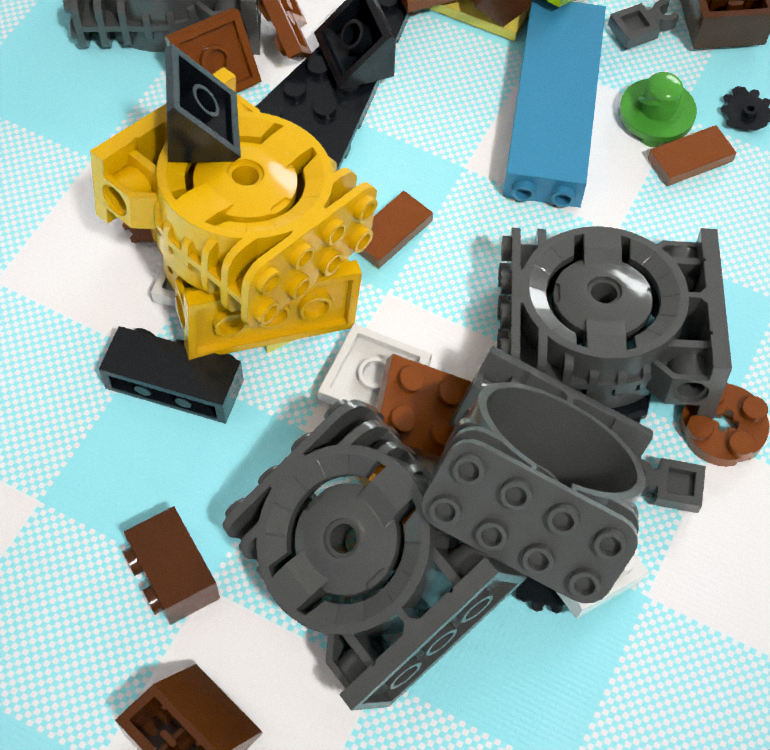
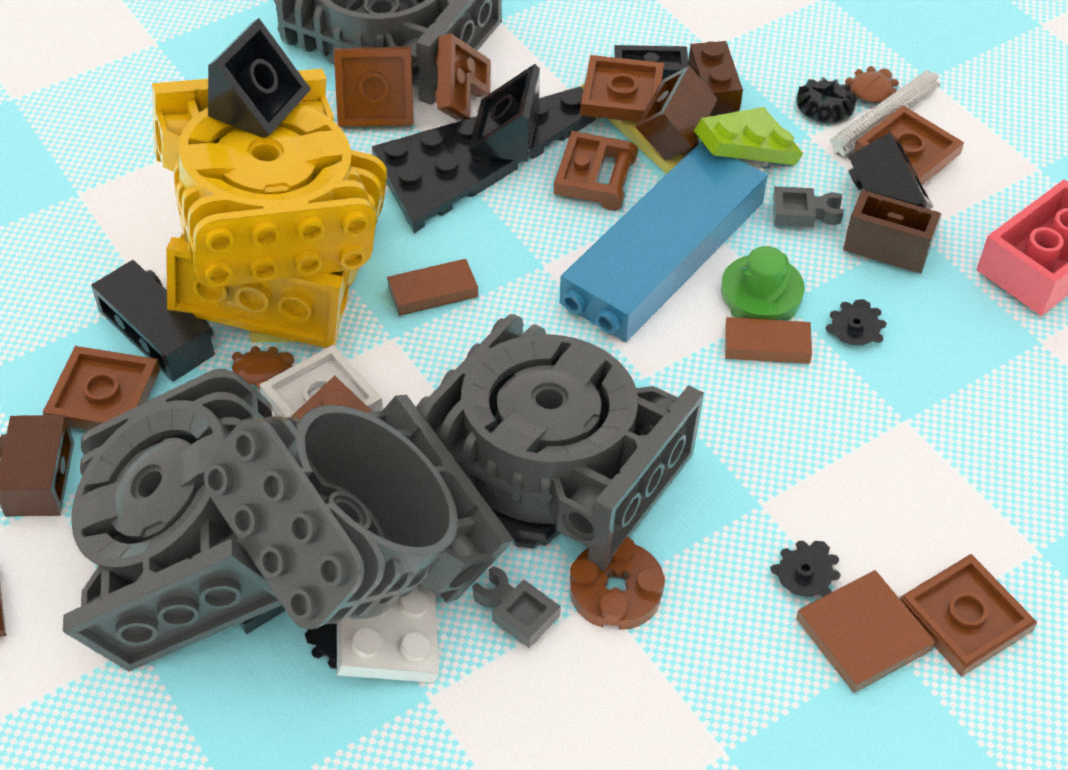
camera: 30 degrees right, 10 degrees down
(176, 464) = (101, 386): none -> dark orange plate
(299, 372) = (260, 365): none -> dark orange piece
(441, 63) = (583, 165): none -> dark orange plate

